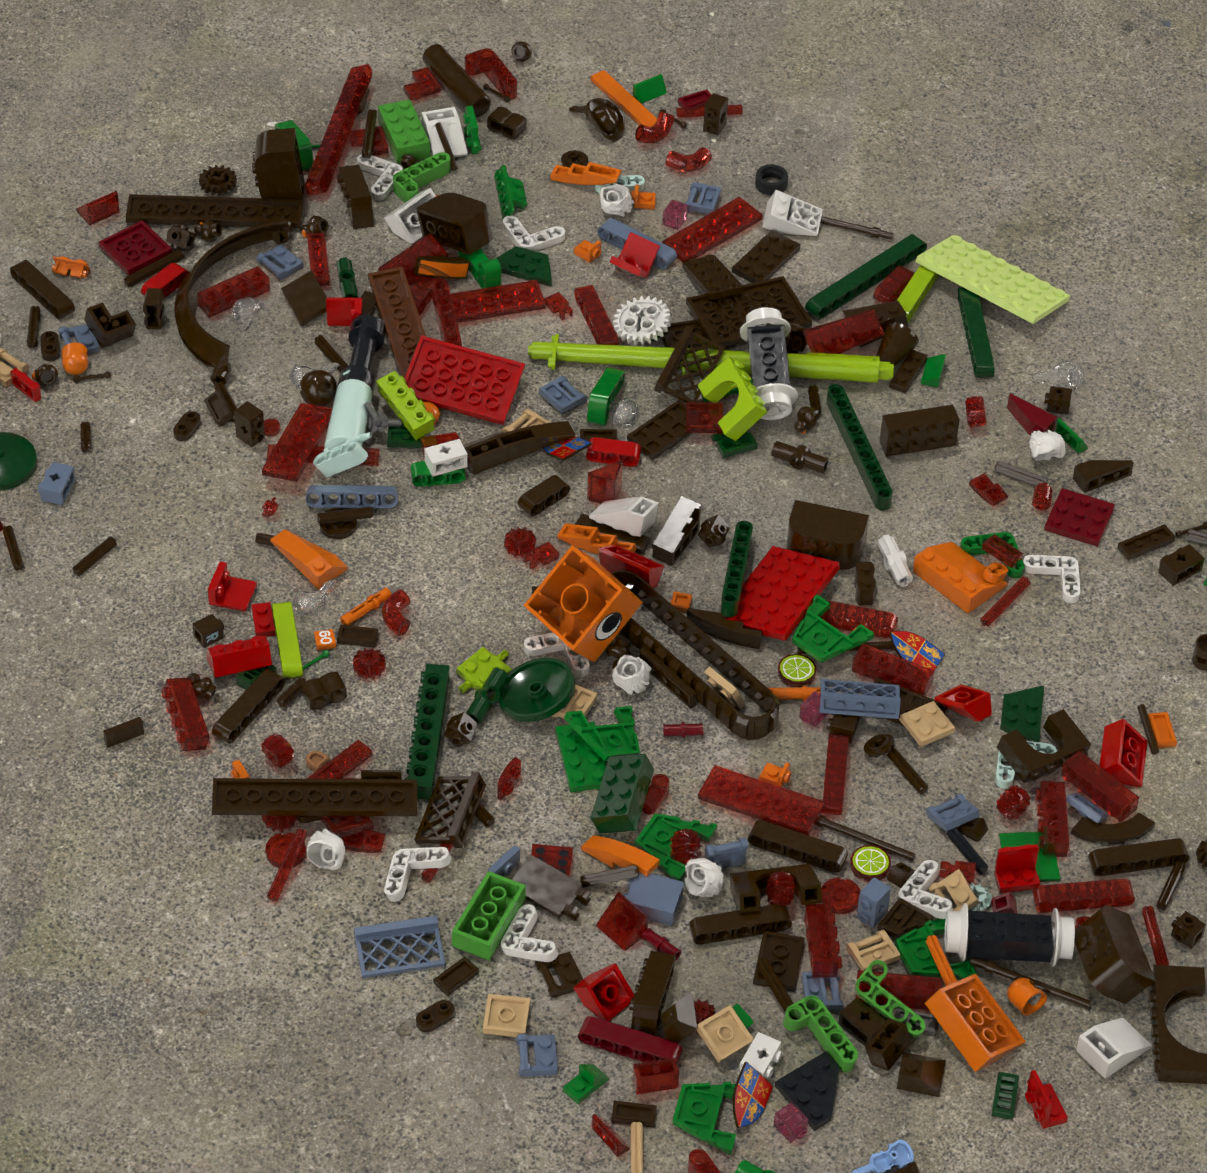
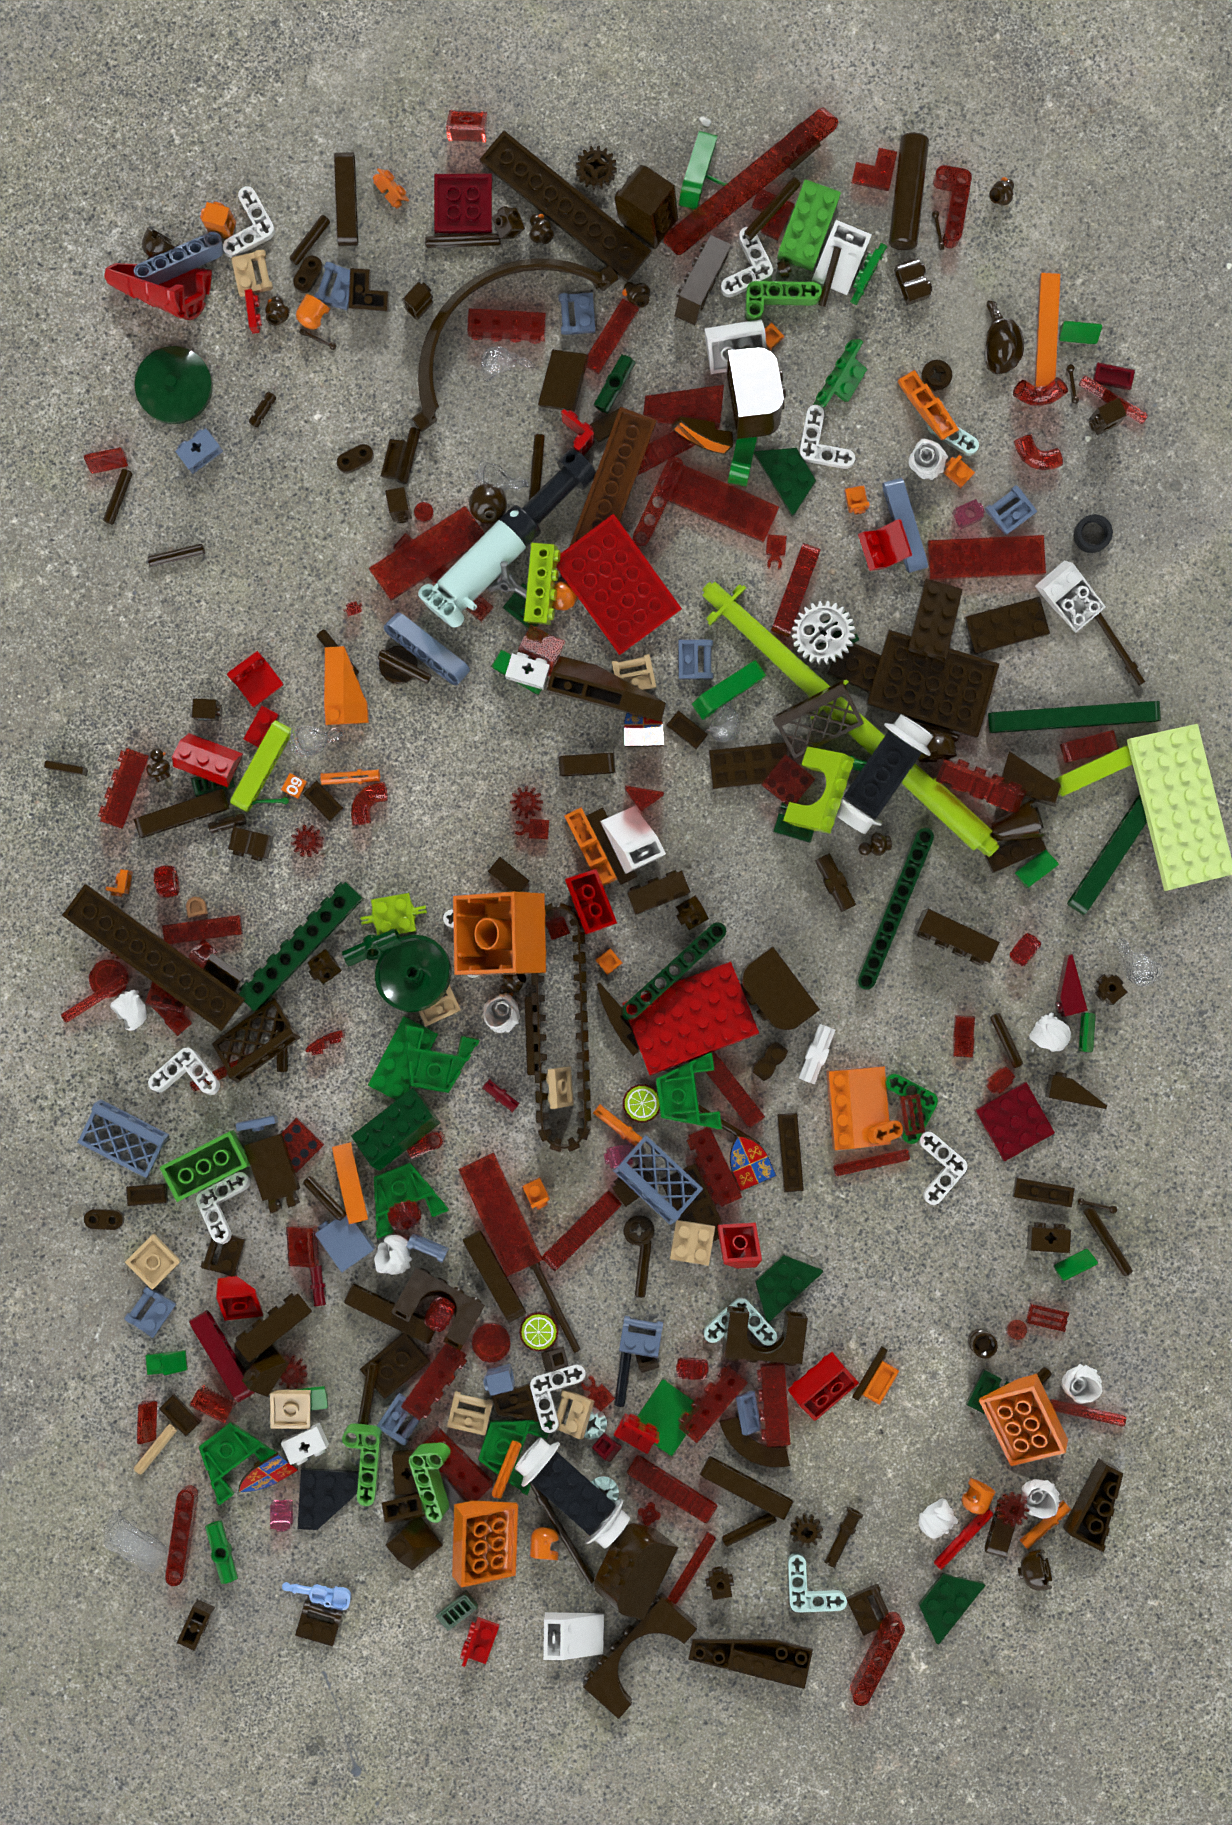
camera: 40 degrees right, 40 degrees up
(167, 279) = (456, 268): red beam -> none
(611, 451) = (684, 759): red beam -> none
(814, 398) = (905, 825): dark brown axle -> none
(940, 633) = (790, 1152): none -> dark brown tile

